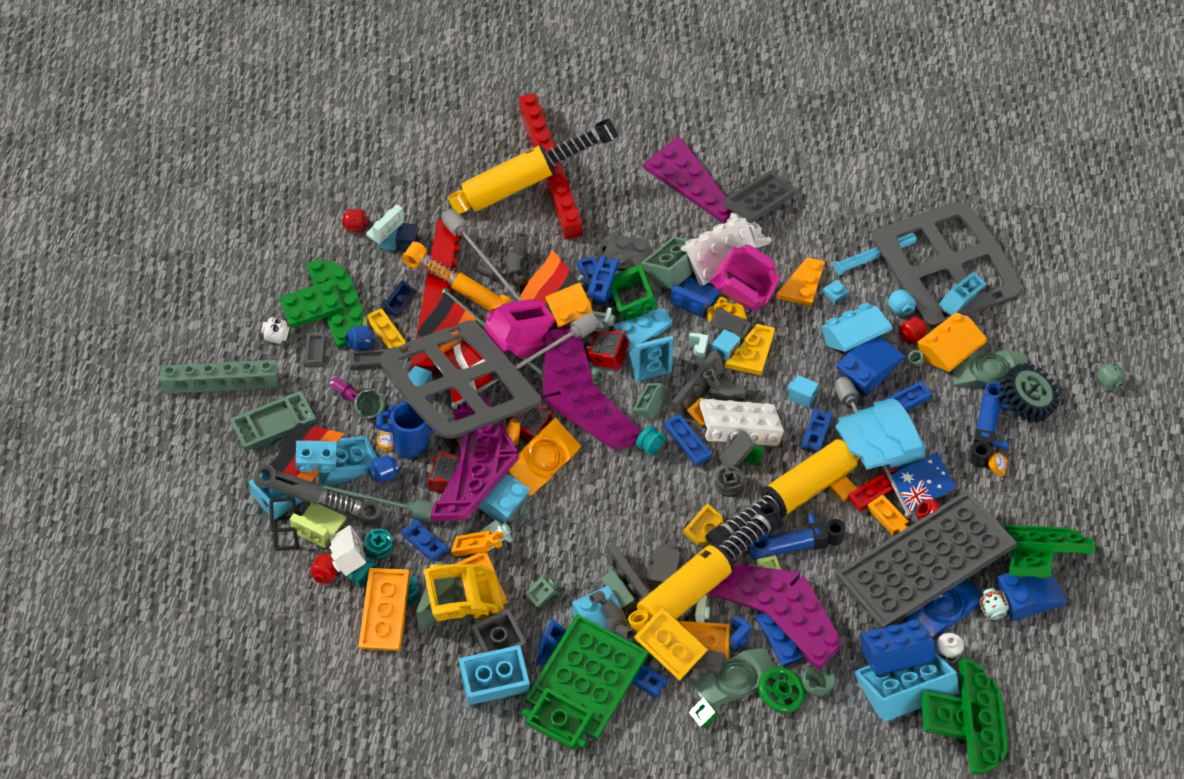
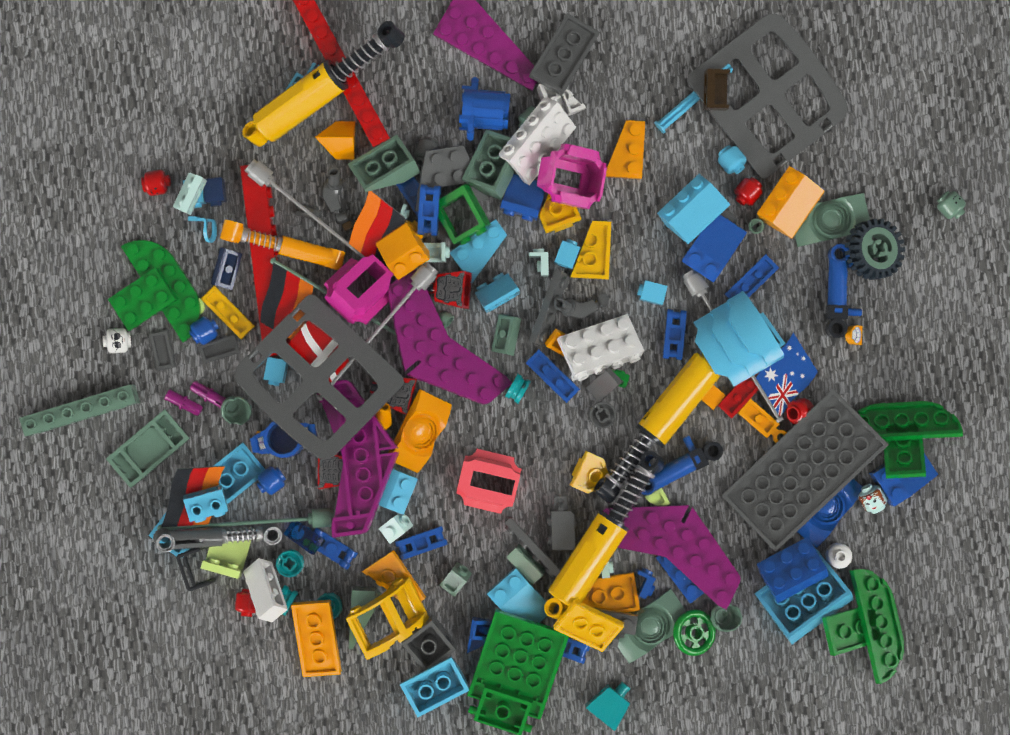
camera: 10 degrees left, 35 degrees up
(319, 392) = (183, 402): none -> magenta axle
(380, 255) = (214, 227): none -> medium azure piece
(400, 522) = (304, 537): none -> clear blue tile
(451, 443) = (323, 428): dark brown tile -> none
(476, 542) = (381, 546): light orange plate -> none
(517, 554) = (421, 543): none -> blue plate
(534, 224) = (339, 140): none -> light orange slope
(577, 240) = (384, 165): none -> sand green slope
(594, 522) = (492, 464): none -> coral piece
(614, 616) = (531, 605): dark grey arm -> none
(675, 219) = (483, 109): none -> blue container
(675, 739) = (610, 704): none -> teal torso
(704, 713) = (629, 672): plate -> none
(730, 322) = (566, 229): dark grey tile -> none
(835, 291) = (662, 156): medium azure plate -> none
(897, 242) = (715, 89): none -> dark brown panel
(962, 293) = (792, 138): medium azure slope -> none

